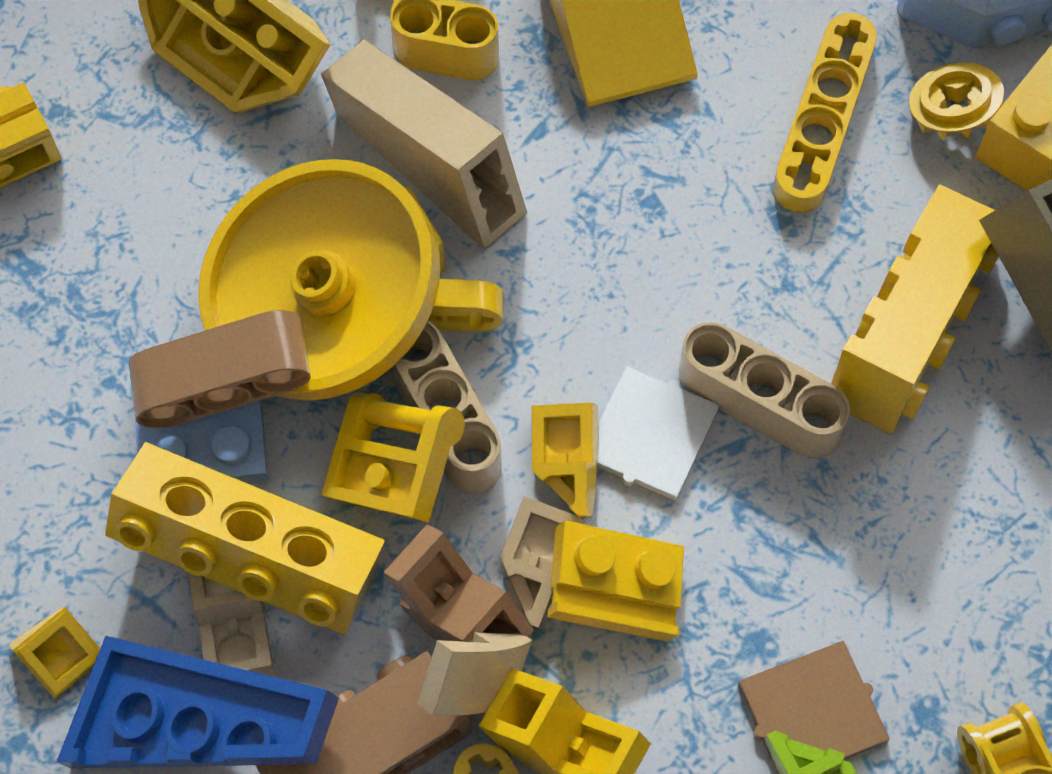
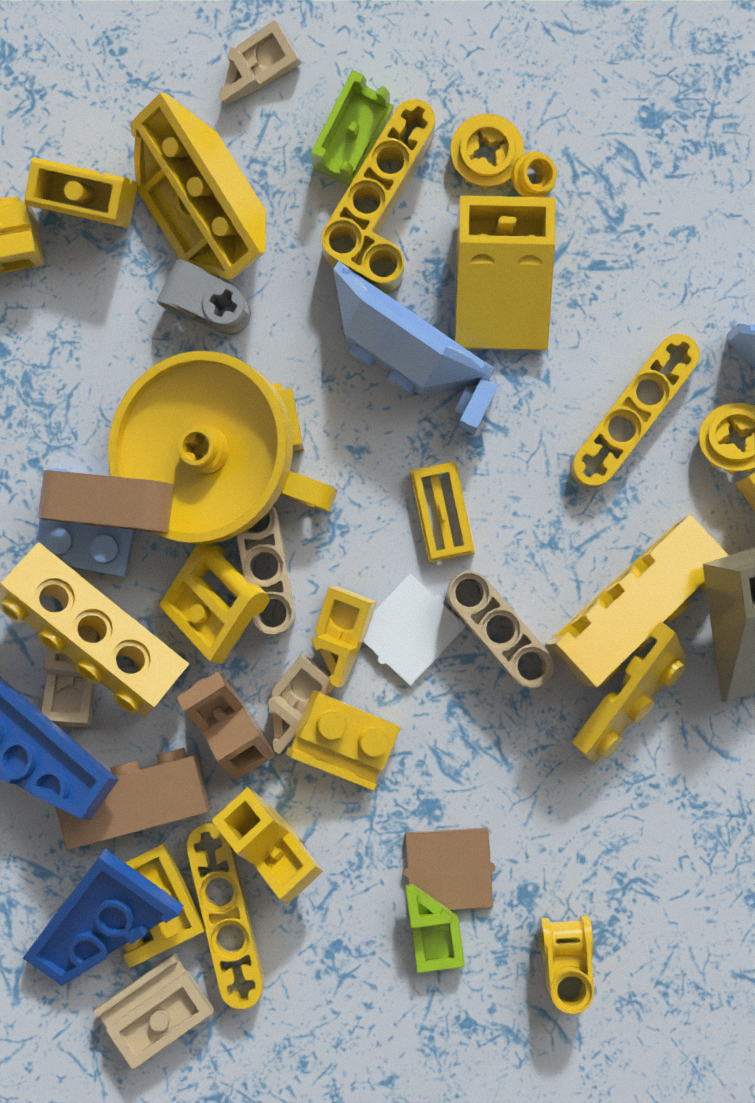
camera: 15 degrees right, 20 degrees up
(87, 57) = (80, 192): none -> yellow brick
(265, 131) = (198, 295): none -> light grey piece
(429, 140) = (318, 343): tan slope -> none
(469, 674) = (212, 791): tan slope -> none
(544, 108) = (401, 341): none -> light blue wedge
(634, 153) = (474, 405): none -> light blue plate
(663, 326) = (449, 550): none -> yellow tile
(951, 430) = (641, 683): none -> yellow wing

